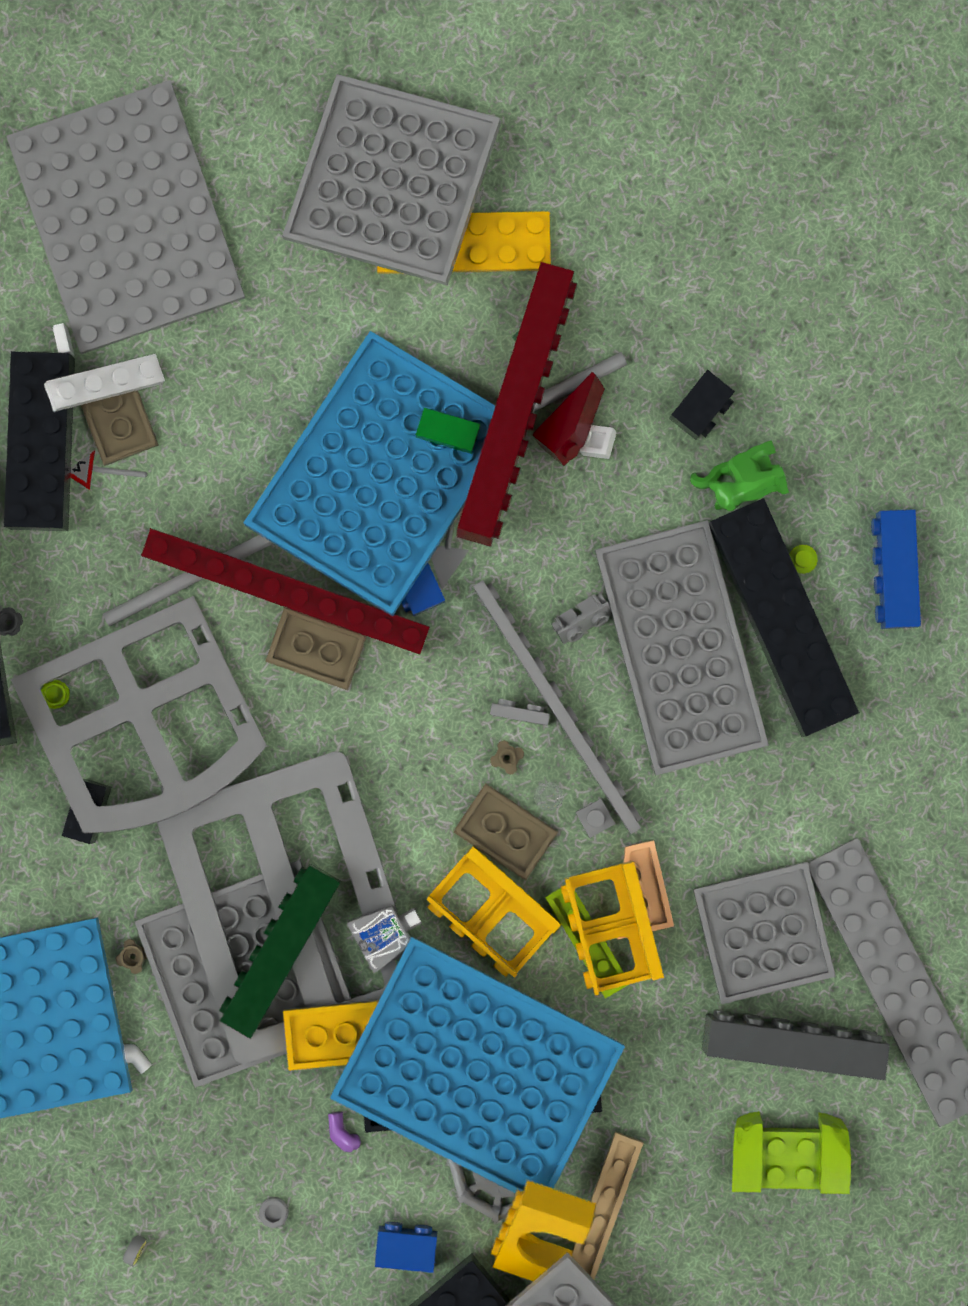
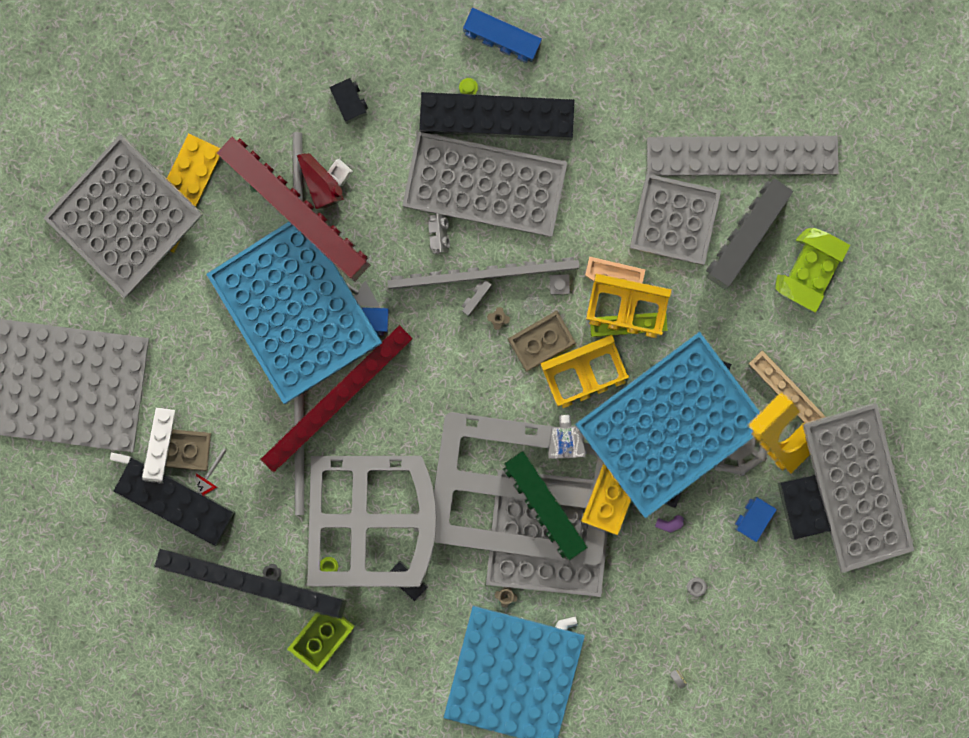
camera: 65 degrees left, 0 degrees up
(316, 648) = (378, 399): dark tan tile -> none
(448, 430) = (289, 256): green tile -> none
(751, 474) = (403, 92): bright green animal -> none

